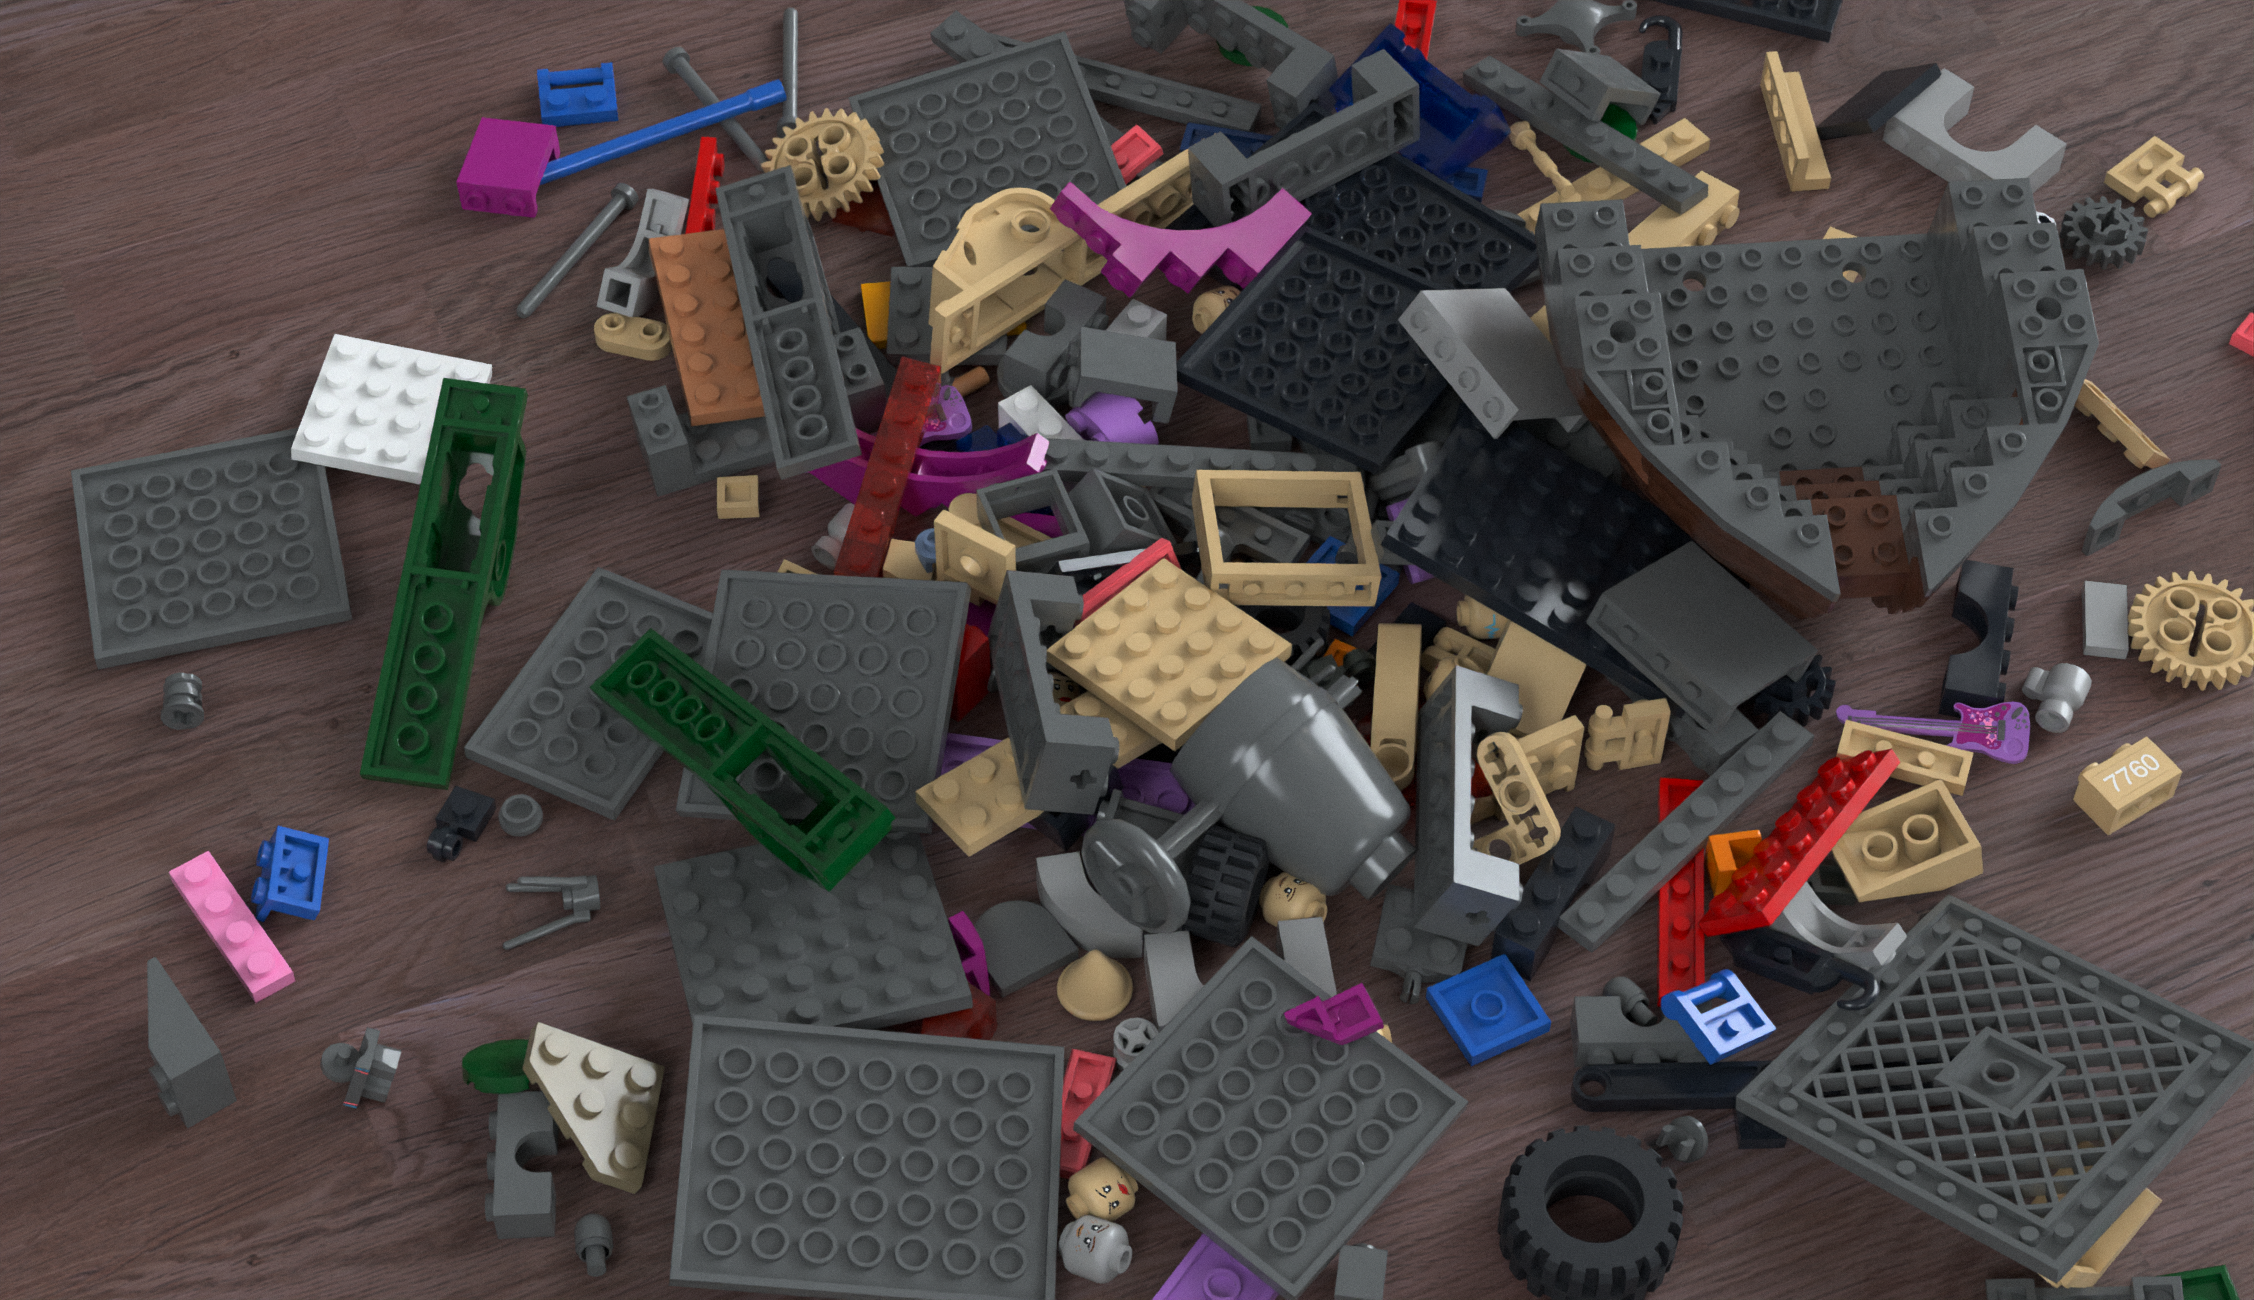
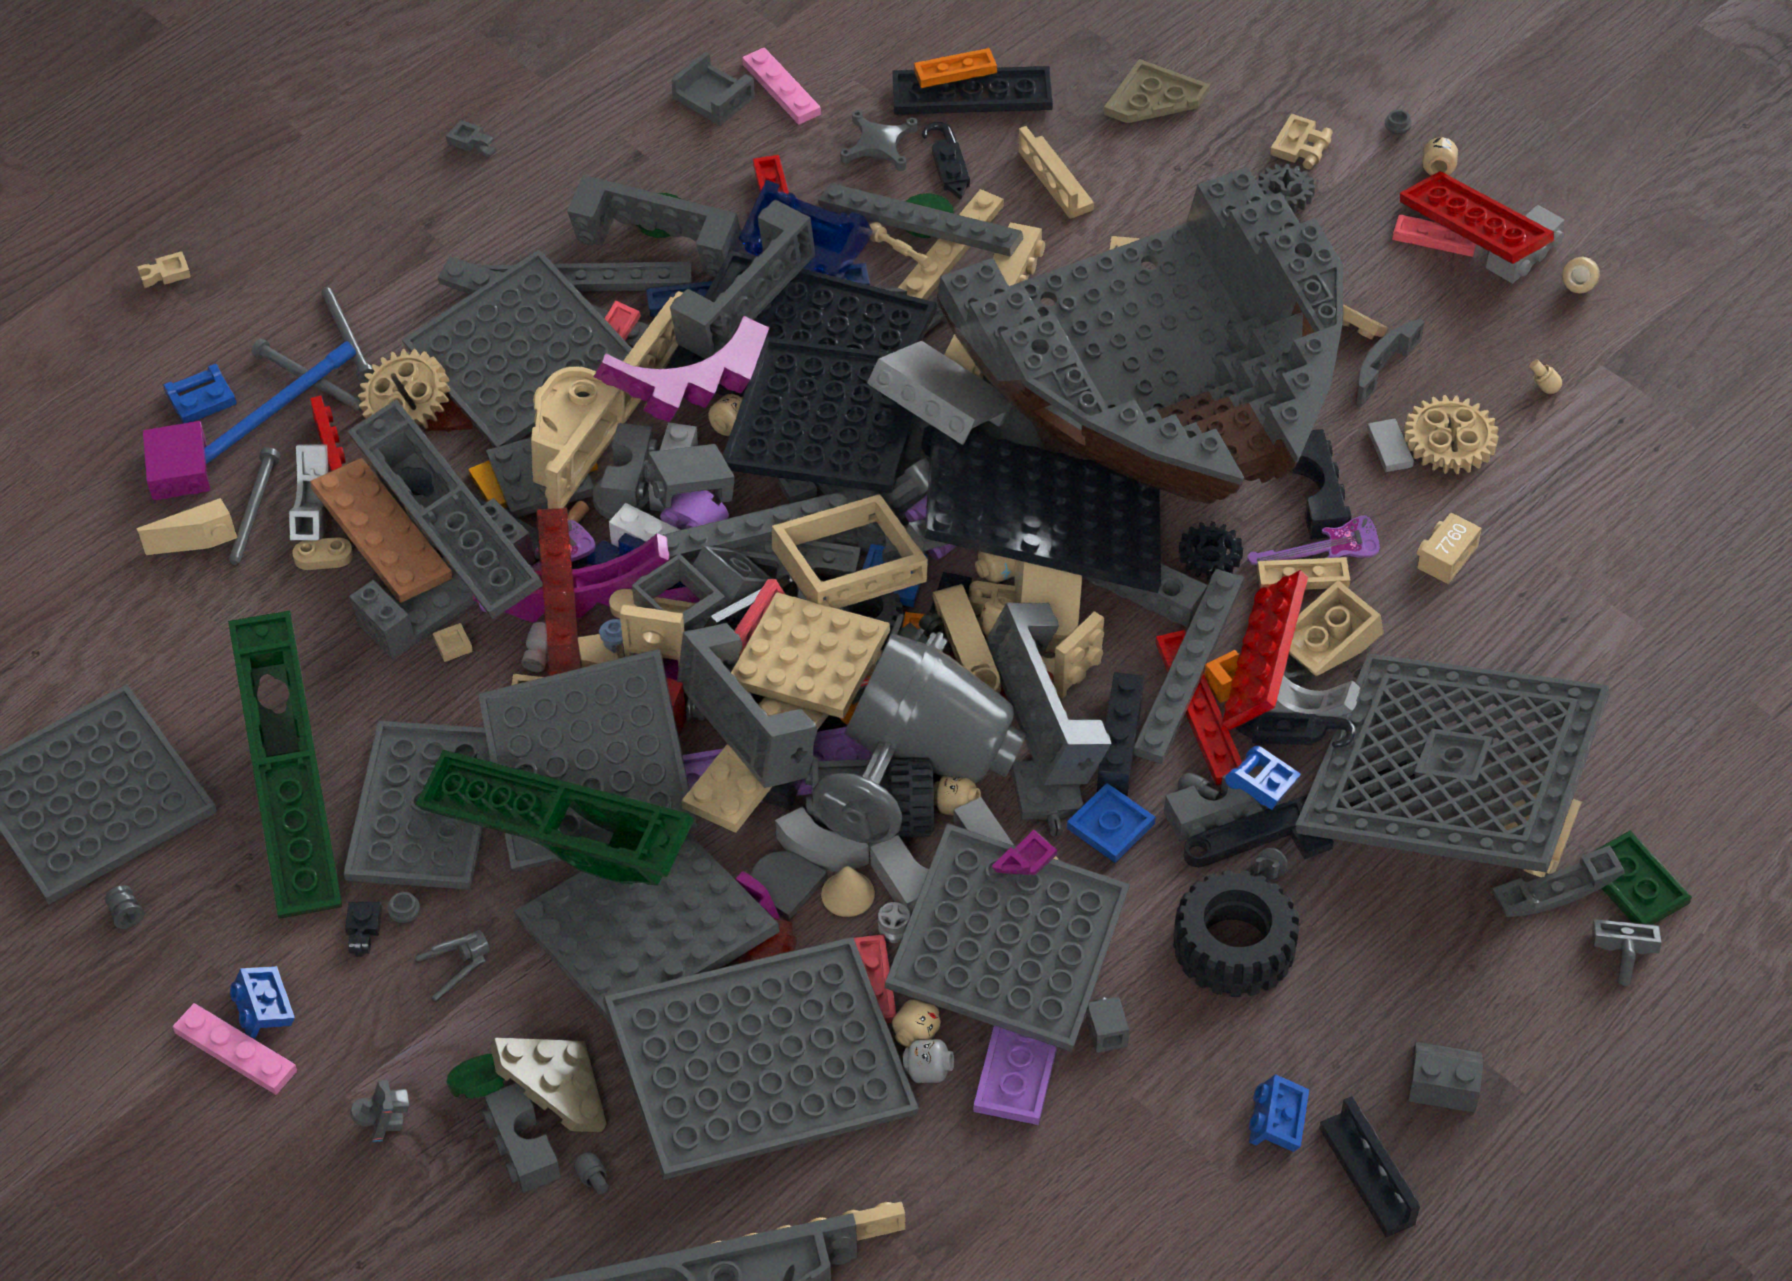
camera: 20 degrees left, 0 degrees up
(184, 1056) = (254, 1142): dark grey slope -> none
(377, 407) = (174, 658): white plate -> none
(482, 257) = (189, 530): none -> tan slope
(1517, 831) = (1085, 699): tan beam -> none
(1595, 81) = (917, 183): dark grey panel -> none
(1639, 732) = (1128, 616): tan plate -> none
(1699, 635) = (1151, 534): dark grey panel -> none
(1878, 101) = (1105, 141): black tile -> none
(1922, 135) = (1139, 153): light grey arch -> none
(1982, 56) = (1154, 92): none -> dark tan plate
(2061, 694) = (1384, 500): light grey piece -> none

